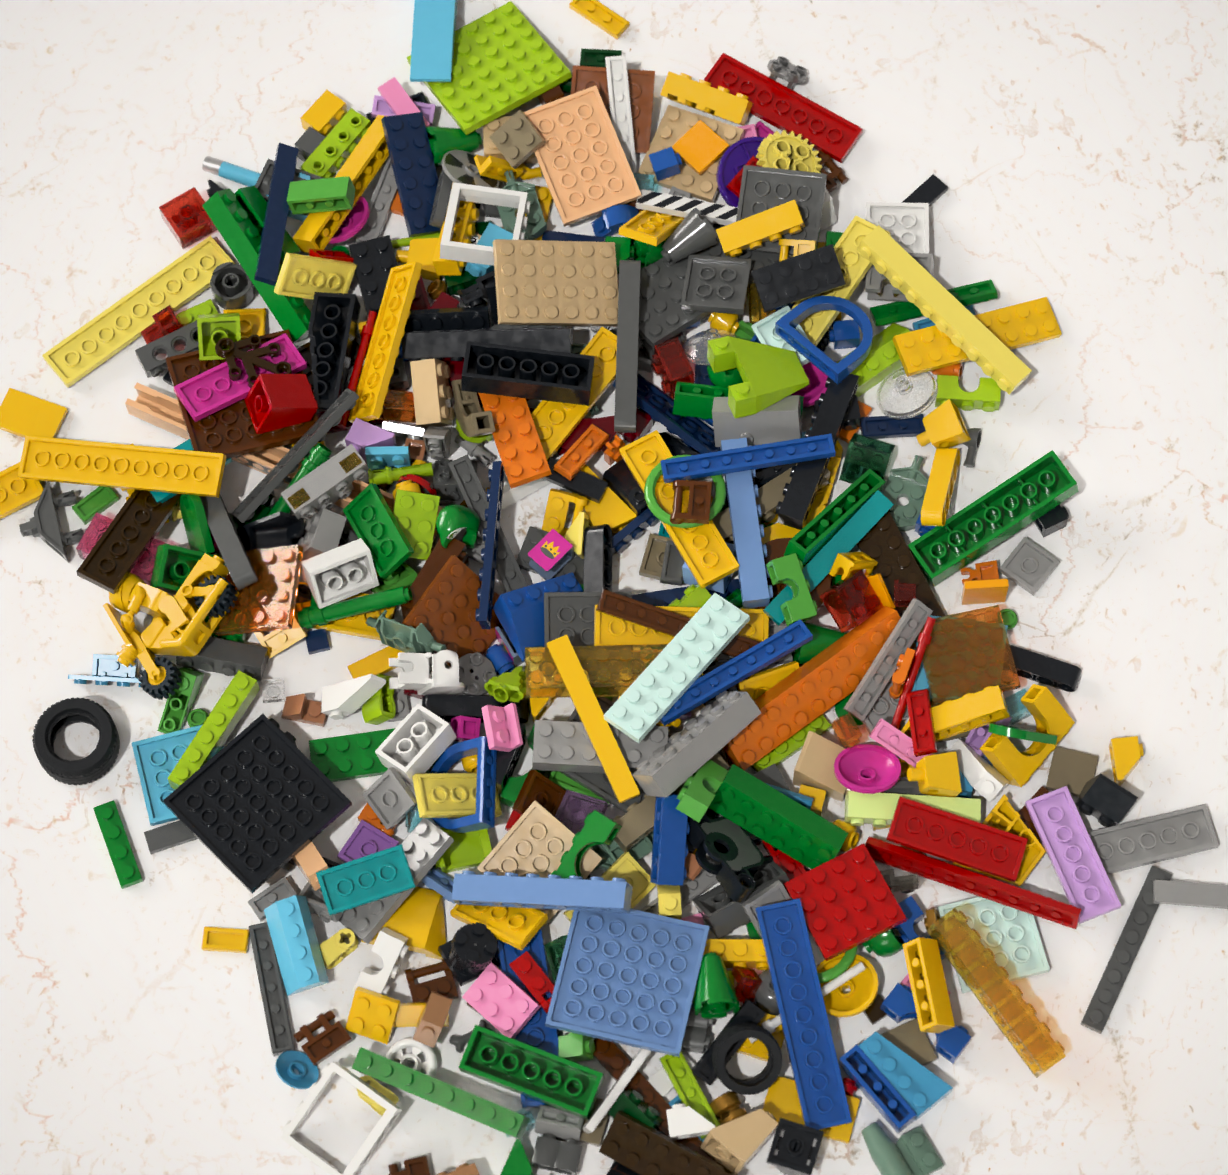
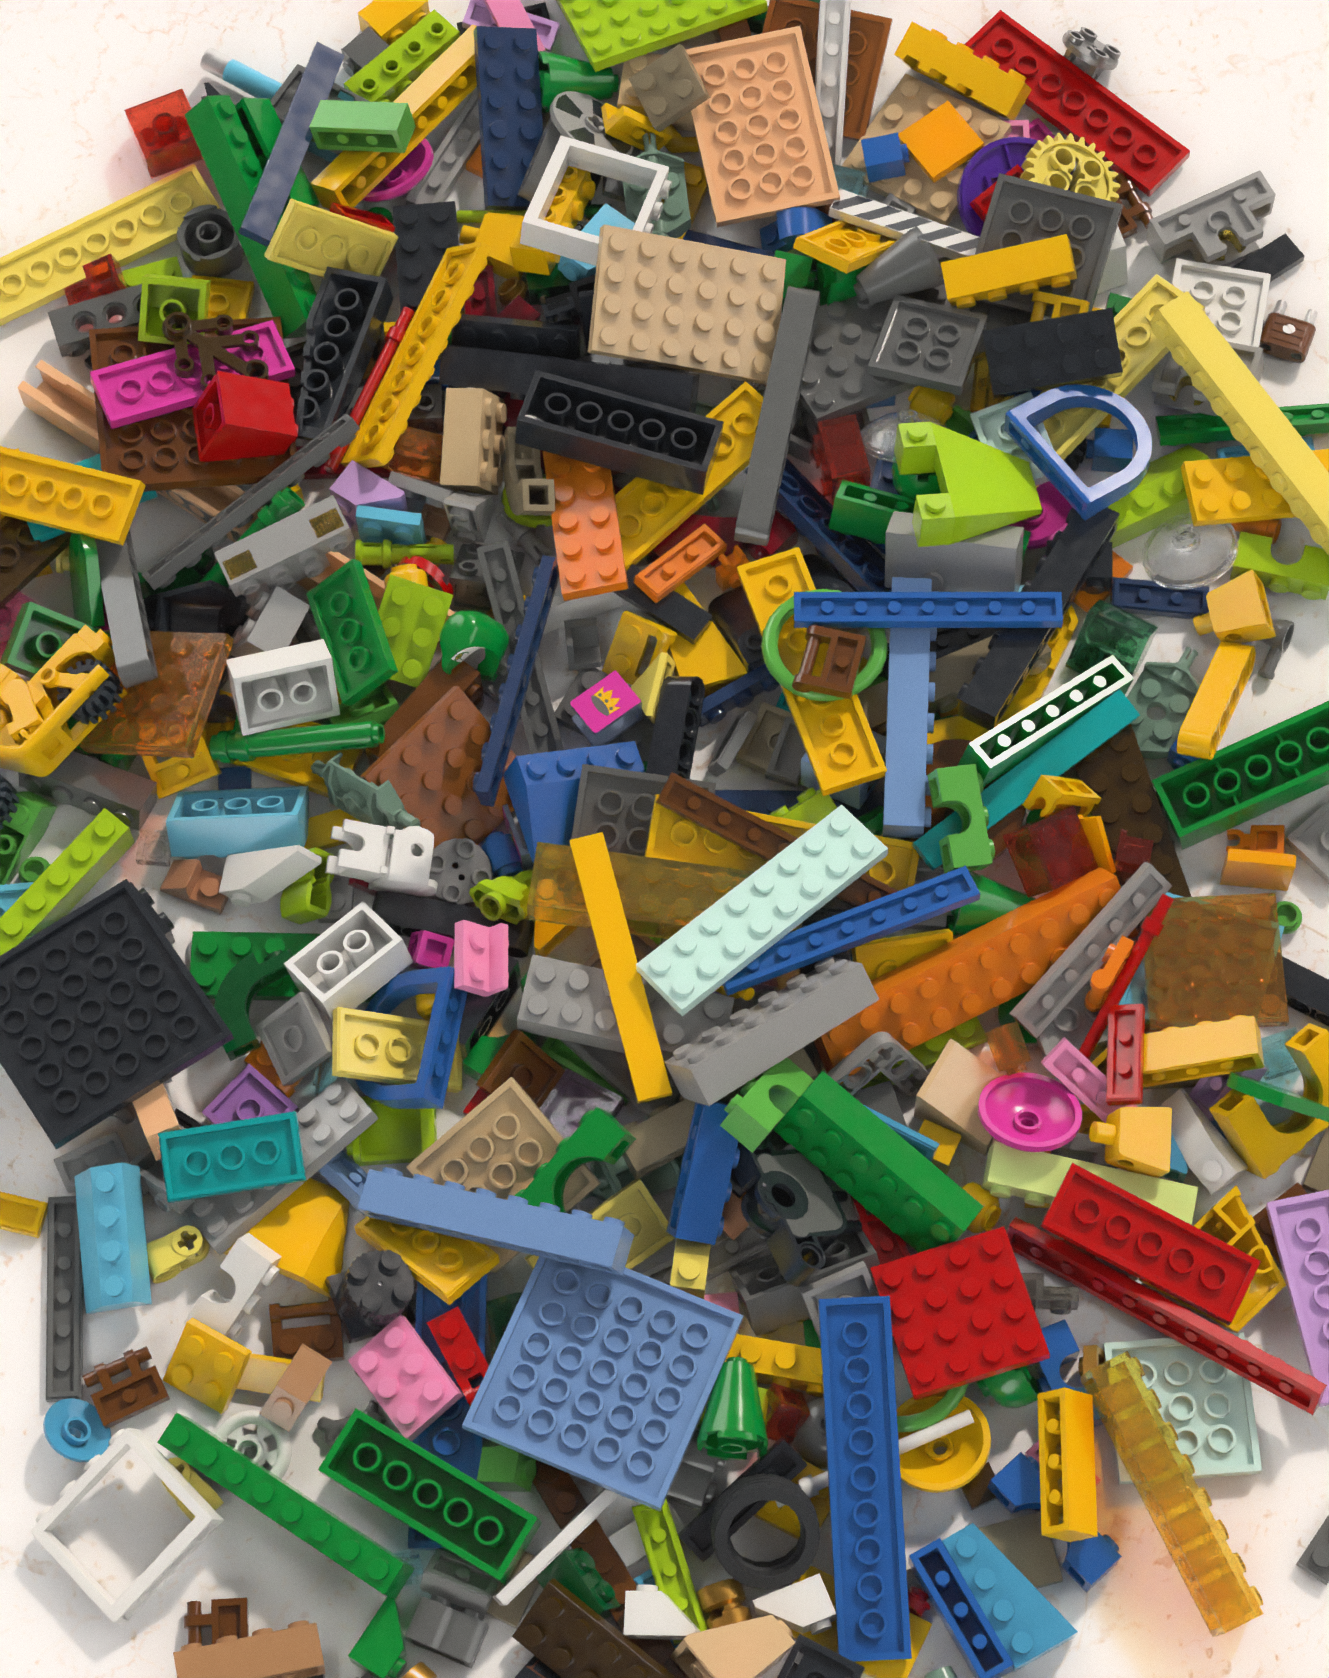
camera: 10 degrees right, 0 degrees up
(325, 665) = (239, 822): none -> medium azure slope
(347, 774) = (237, 994): none -> dark green arch
(526, 514) = (582, 643): none -> dark grey panel
(634, 563) = (732, 743): none -> dark grey tile
(768, 747) = (883, 1054): none -> light grey beam
(777, 1100) = (800, 1606): none -> white slope
(888, 176) = (1215, 226): none -> light grey piece
(945, 241) = (1287, 336): none -> reddish brown piece

